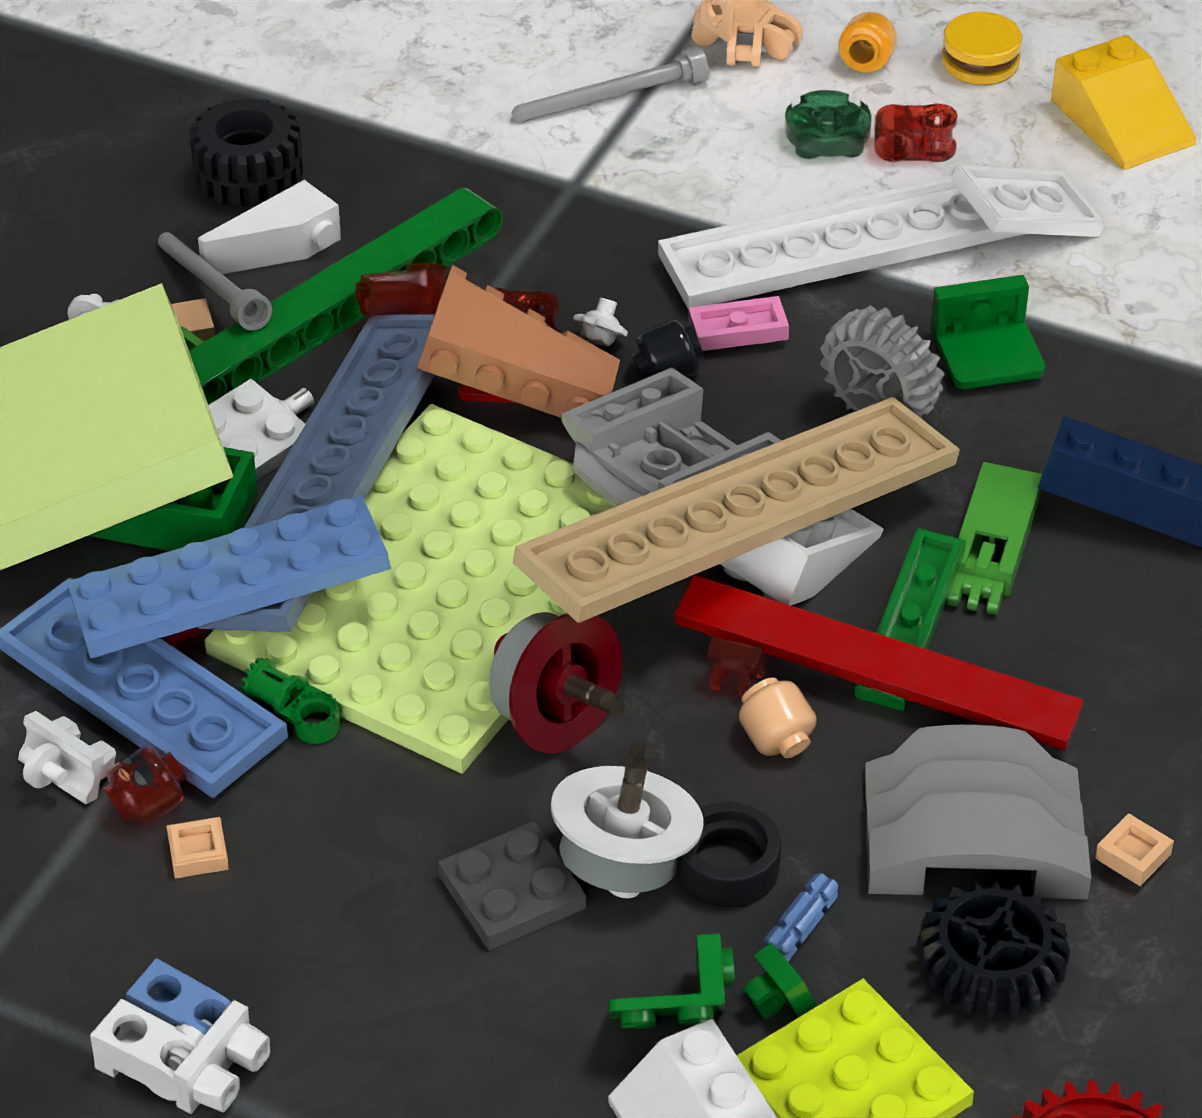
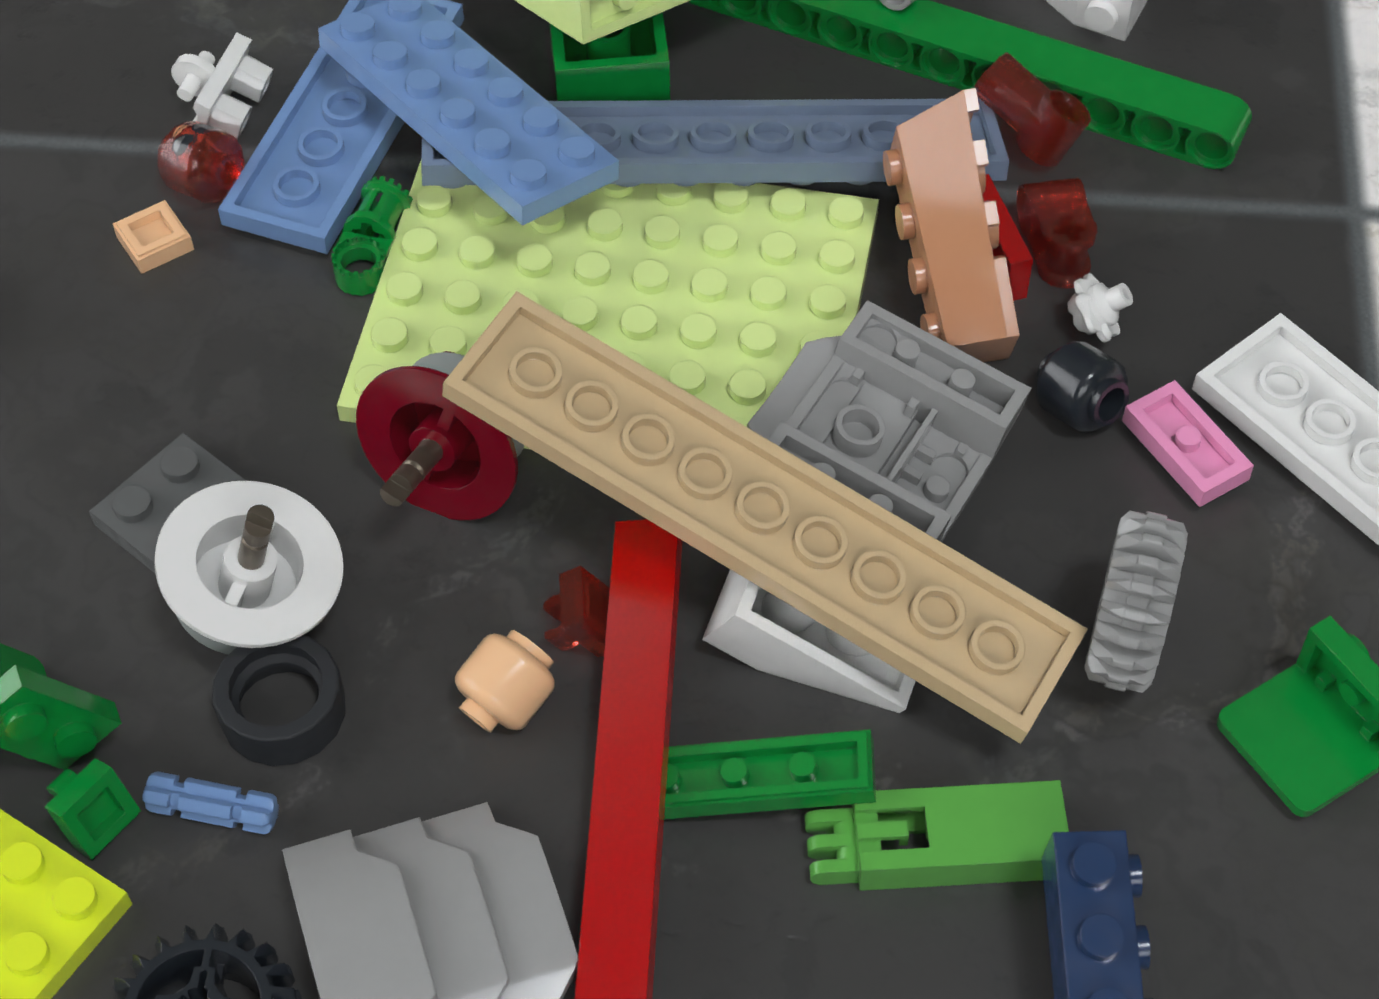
camera: 70 degrees right, 10 degrees up
(260, 423) = (752, 60): white plate -> none

